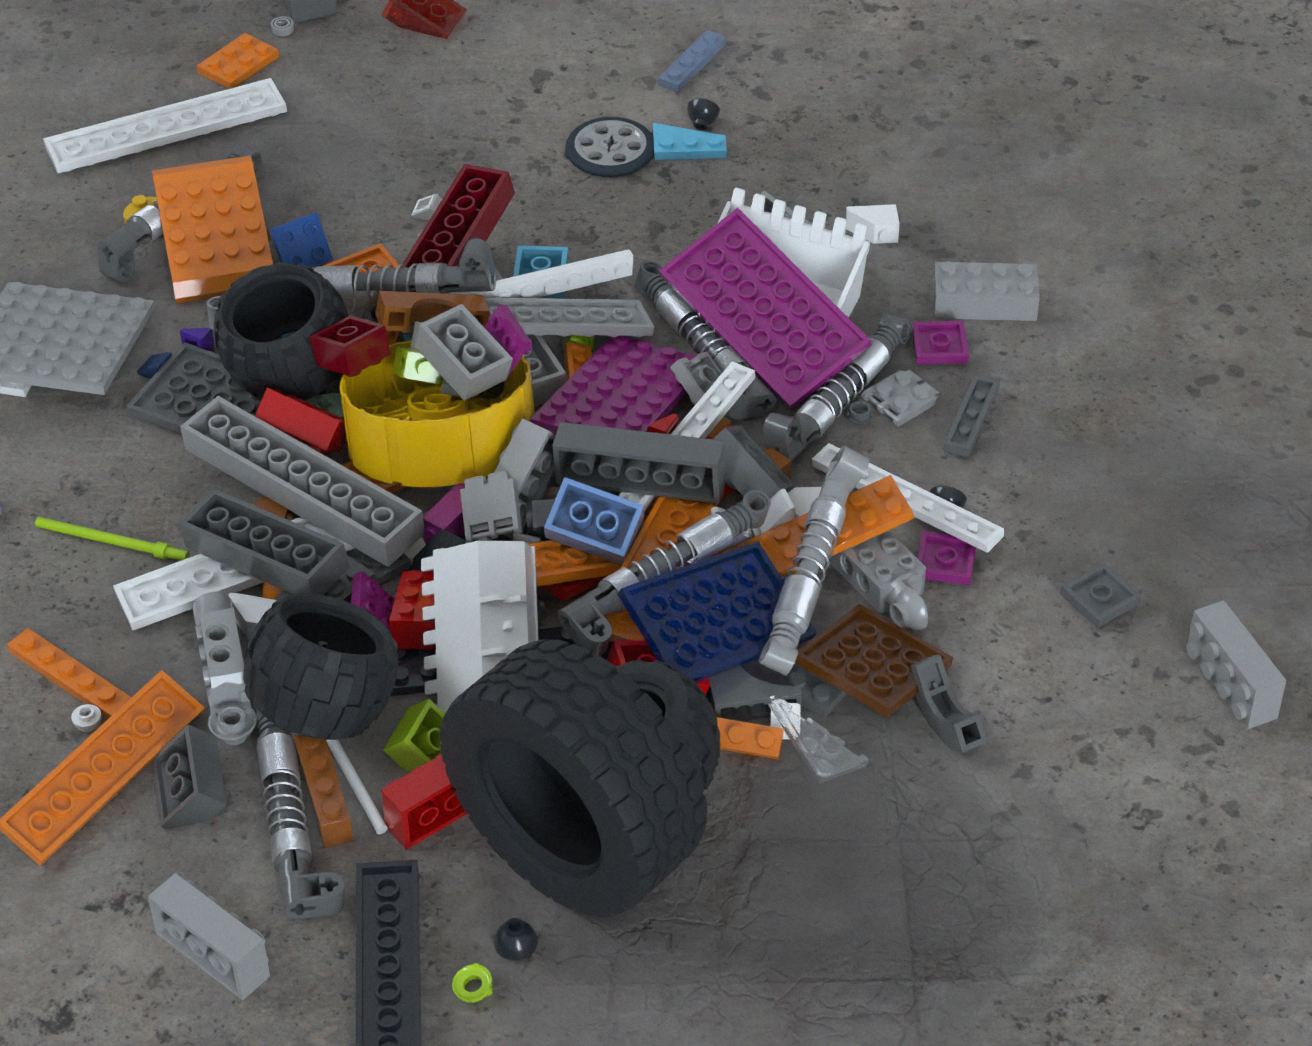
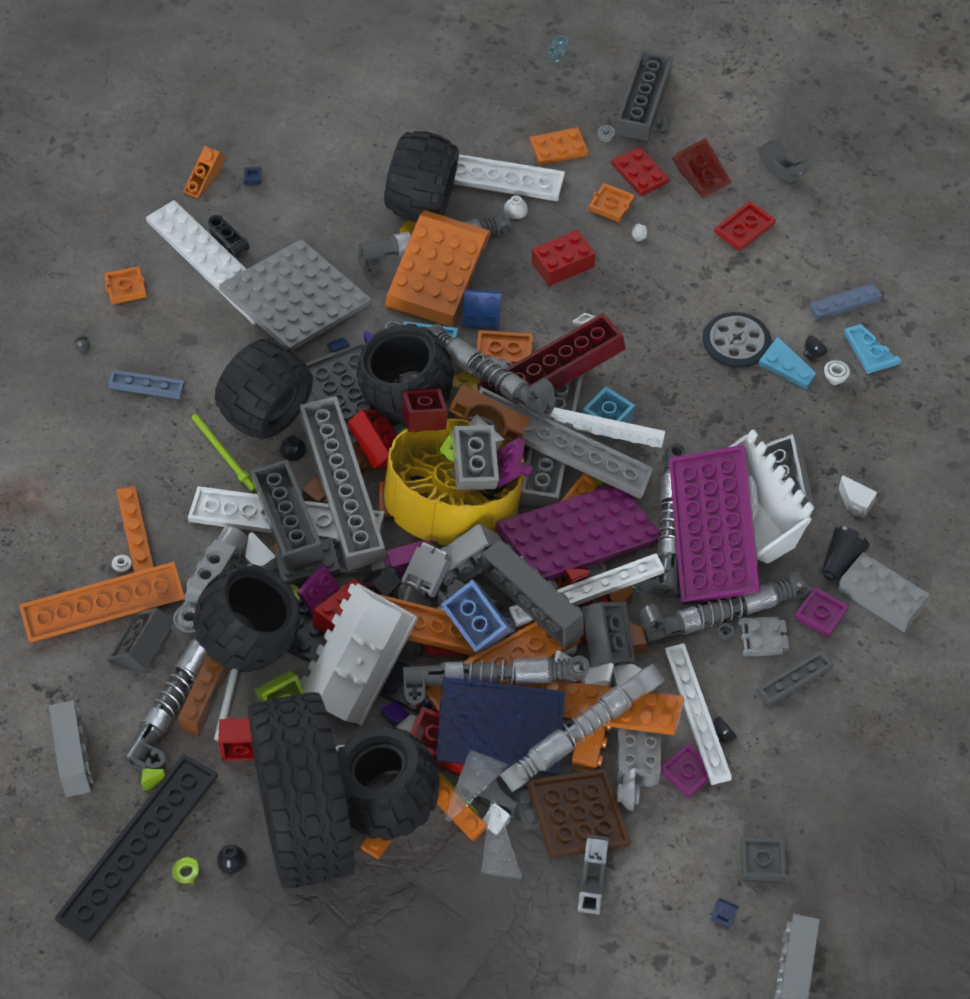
camera: 35 degrees right, 10 degrees up
(116, 140) = (421, 175): none -> black tyre
(120, 431) = (263, 388): none -> black tyre
(193, 489) = (293, 448): none -> black brick
(244, 135) = (516, 208): none -> white brick
(340, 911) = (151, 778): none -> lime slope
(346, 157) = (563, 257): none -> red brick
(351, 84) = (611, 202): none -> orange plate
(354, 43) = (640, 171): none -> red plate
(410, 97) = (639, 232): none -> white plate
(520, 41) = (744, 226): none -> red plate
(696, 375) = (632, 541): light grey brick -> none
(735, 682) = (474, 778): none -> clear wing
(748, 123) = (836, 372): none -> white brick
(764, 93) = (868, 350): none -> medium azure wing
(831, 602) = (588, 754): none -> orange slope
(912, 273) = (843, 552): none -> black cone
(1112, 665) = (724, 912): none -> dark blue plate

